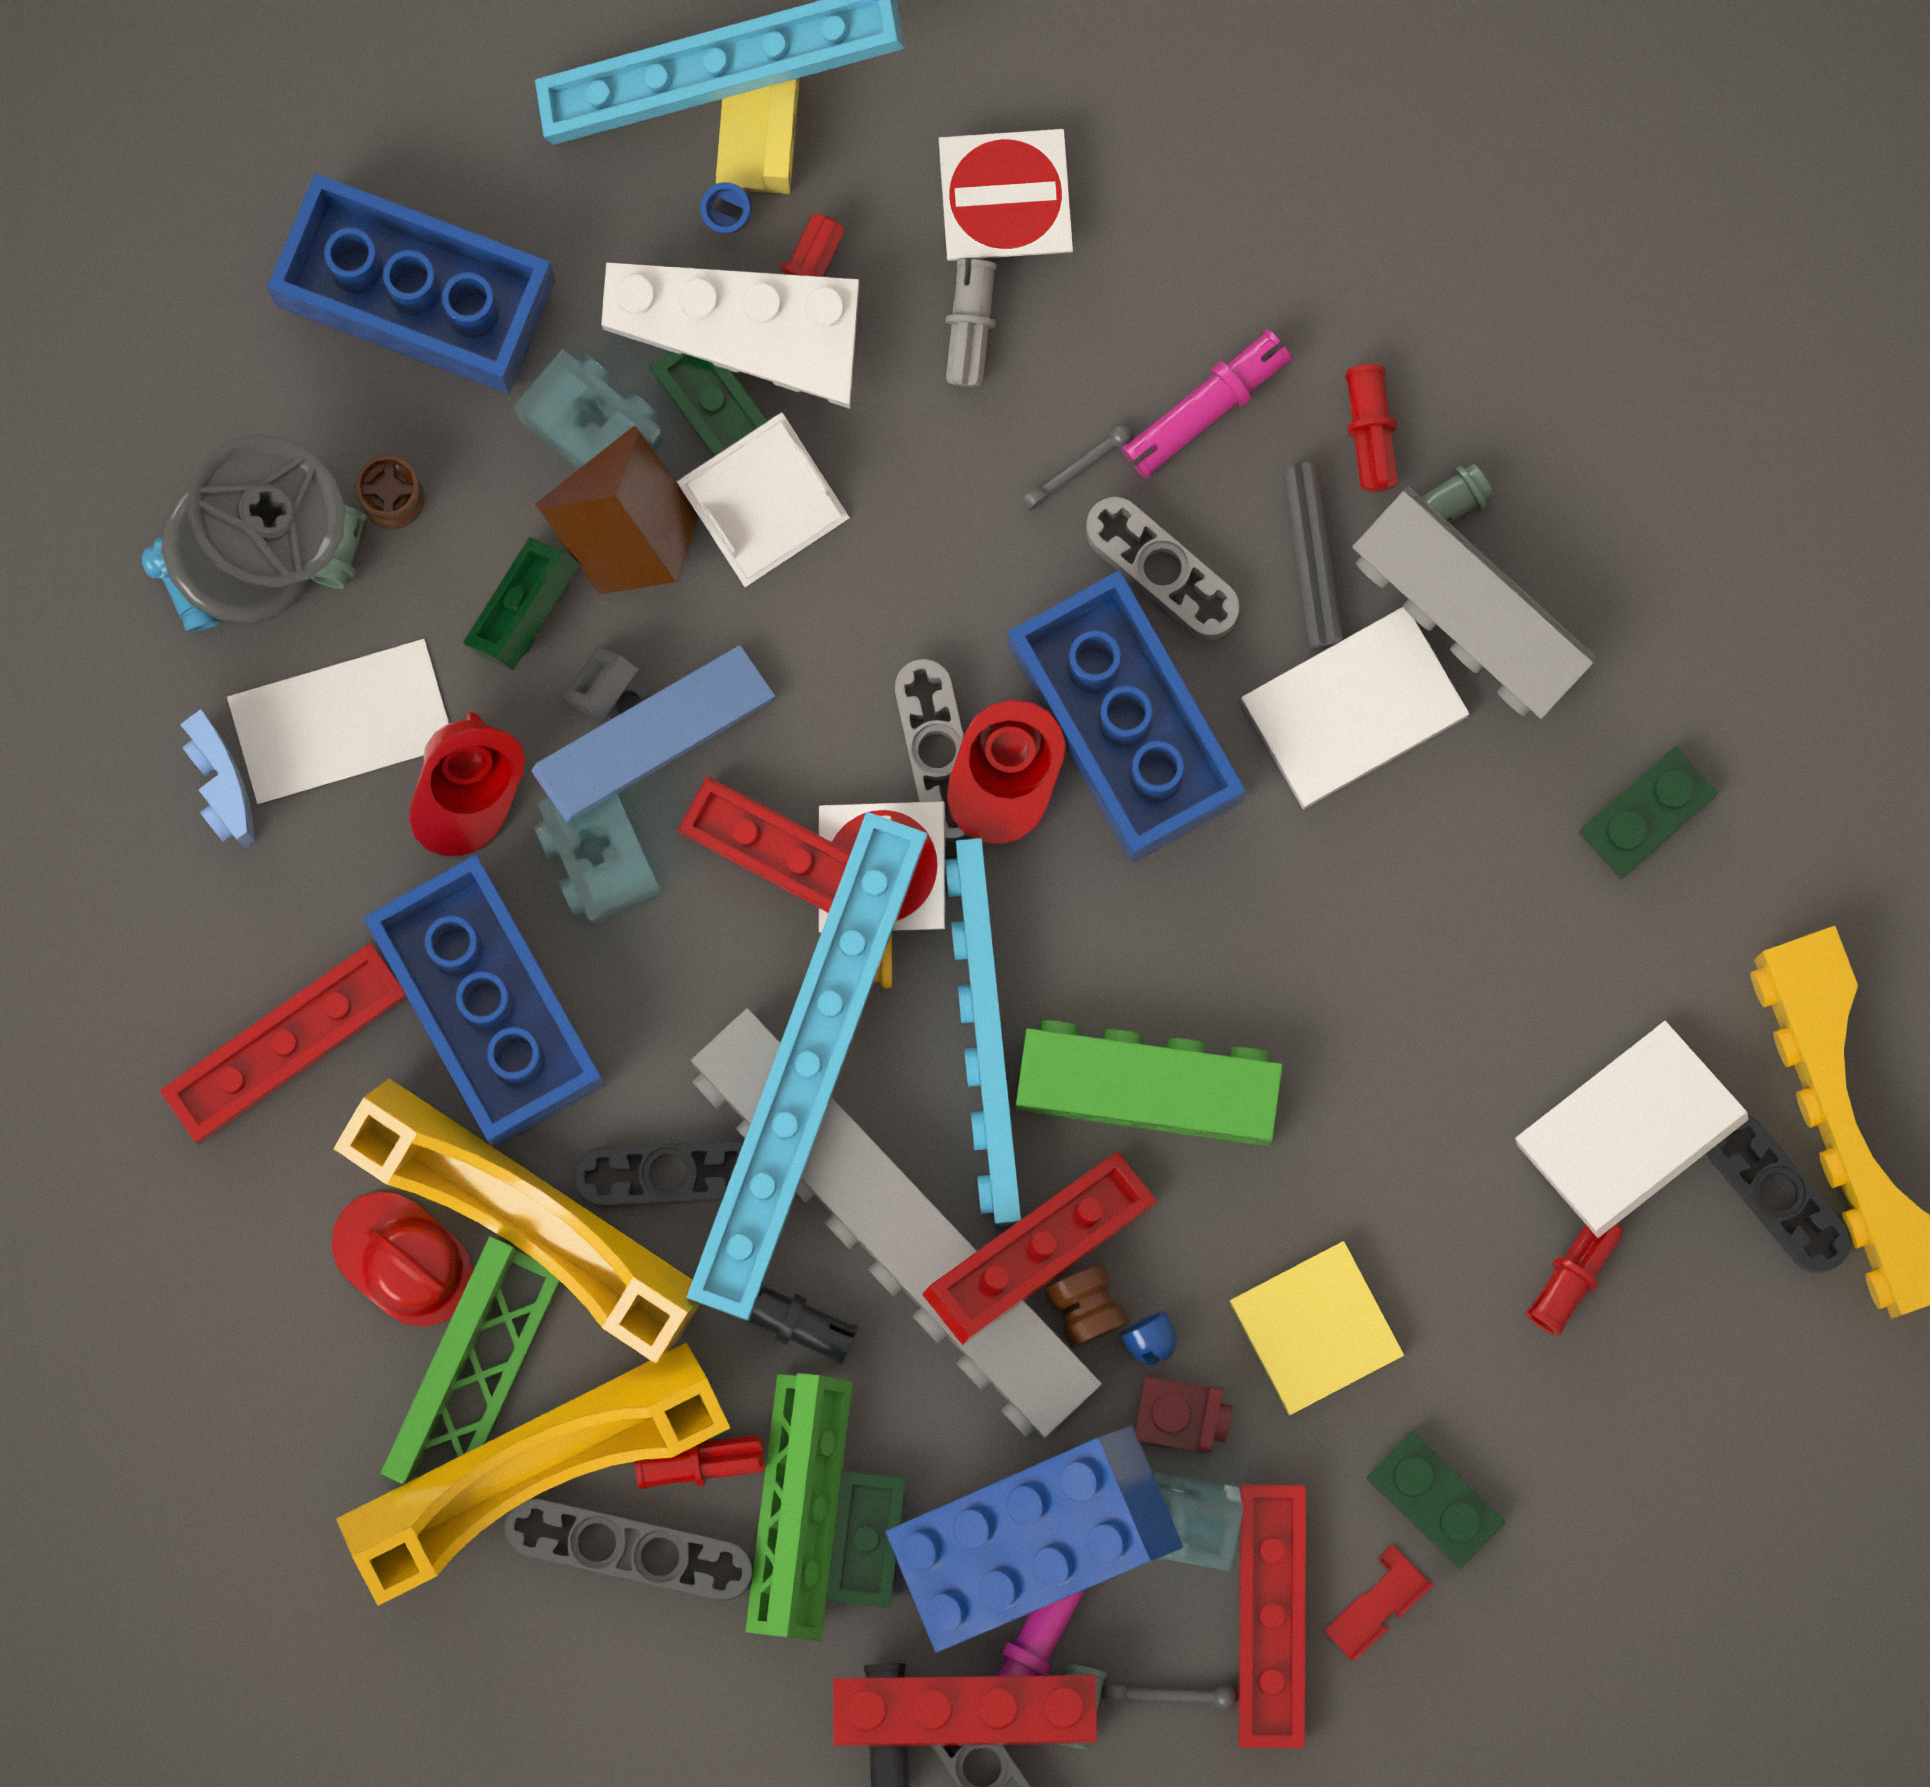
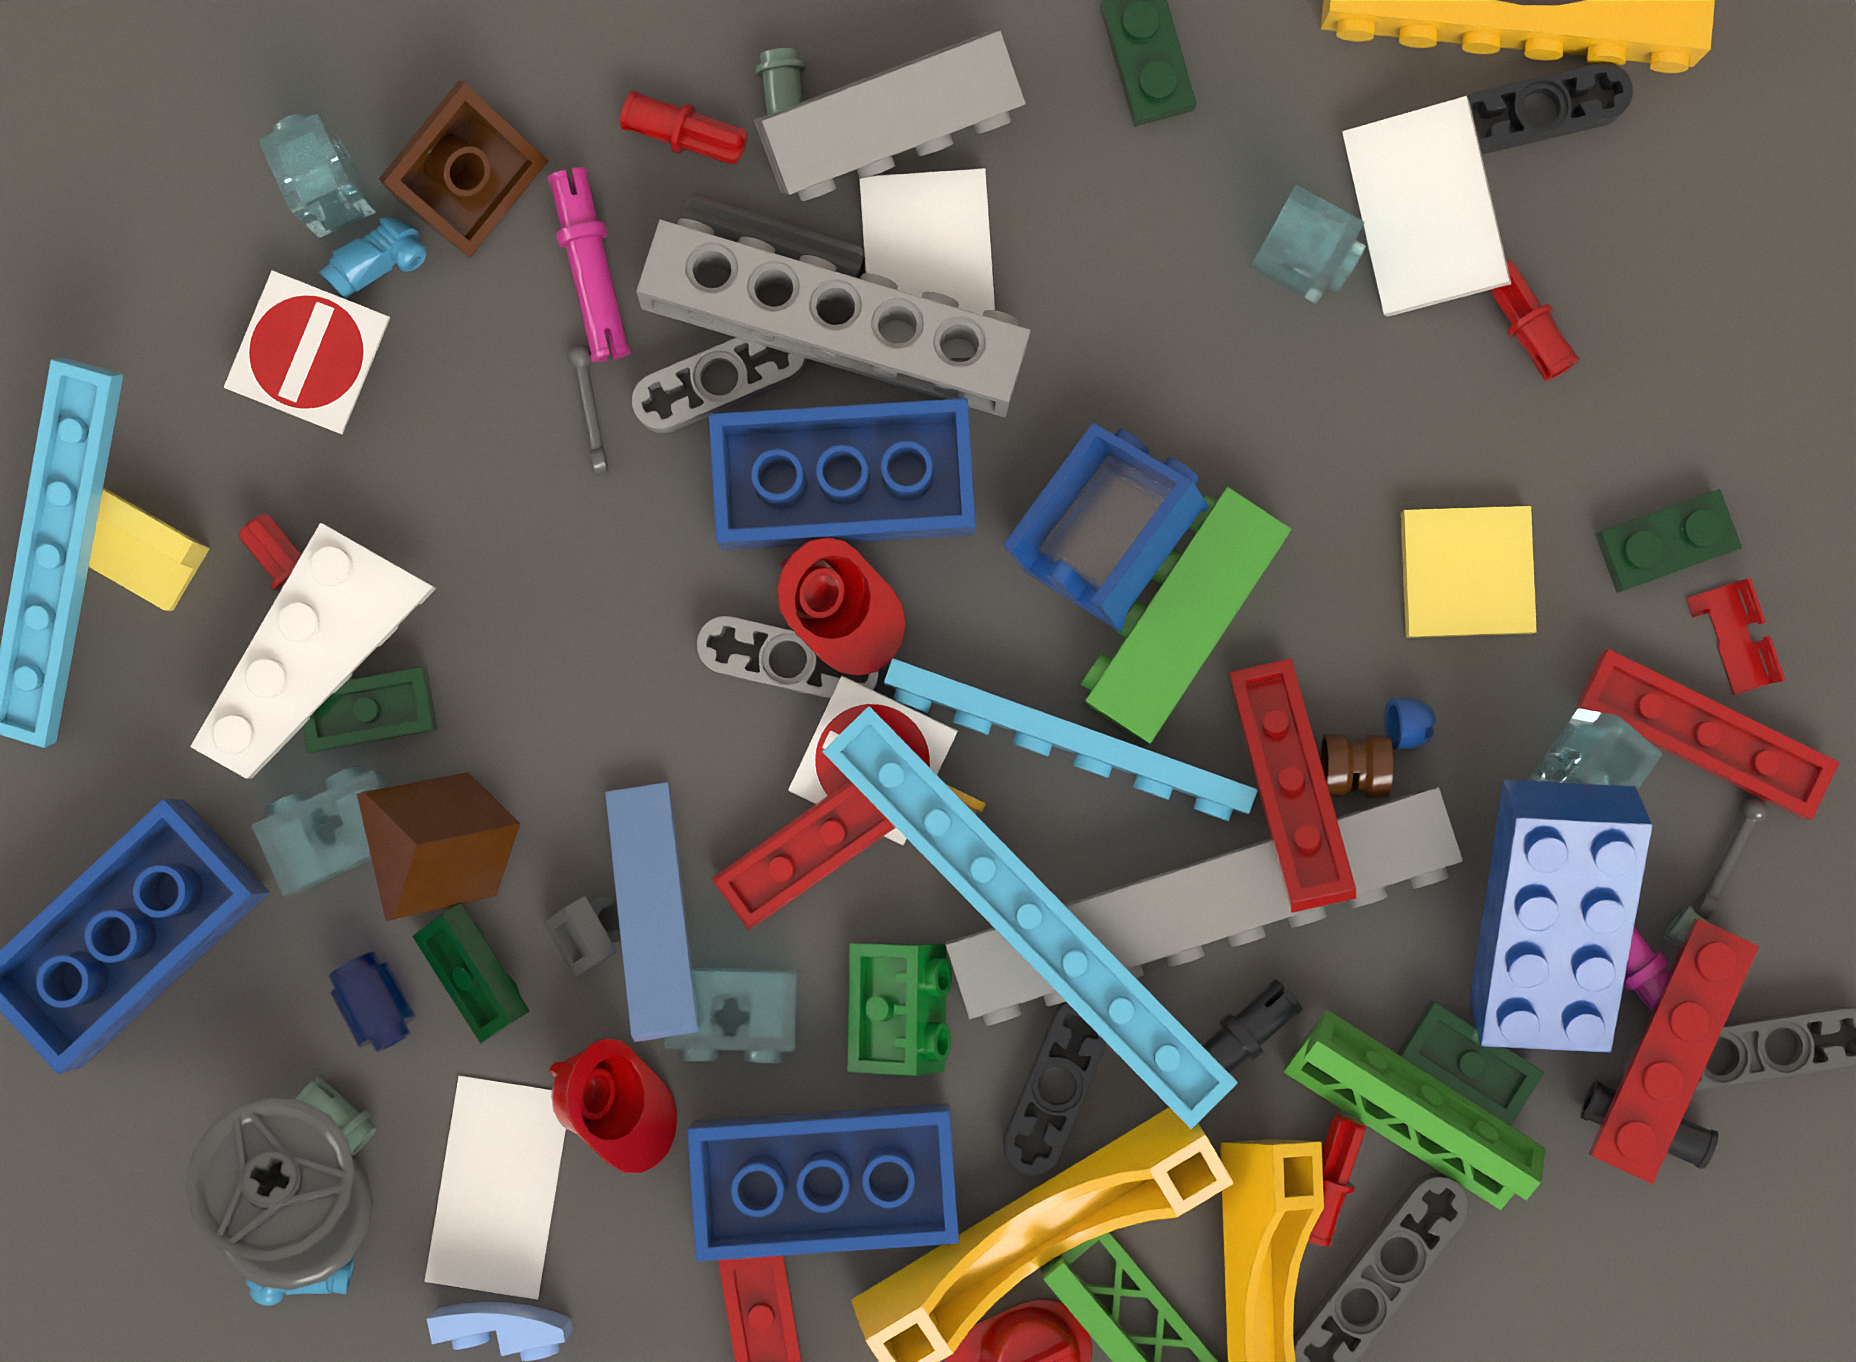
camera: 65 degrees left, 5 degrees up
(388, 479) = (297, 1051): reddish brown wheel -> none
(454, 529) = (372, 1002): none -> clear blue brick
(669, 997) = (898, 1008): none -> green bracket
(722, 221) = (203, 622): blue hinge -> none
(763, 499) = (481, 707): white piece -> none
(970, 322) = (409, 441): light grey axle -> none
(1119, 209) = (374, 255): none -> dark azure arm
(1166, 126) = (315, 173): none -> clear light blue brick
(1181, 1415) = (1491, 728): dark red bracket -> none
(1197, 971) = (1106, 523): none -> blue window
(1236, 252) = (463, 169): none -> reddish brown slope
(1270, 801) = (688, 247): none -> light grey brick
(1537, 1033) = (1310, 246): none -> clear light blue brick

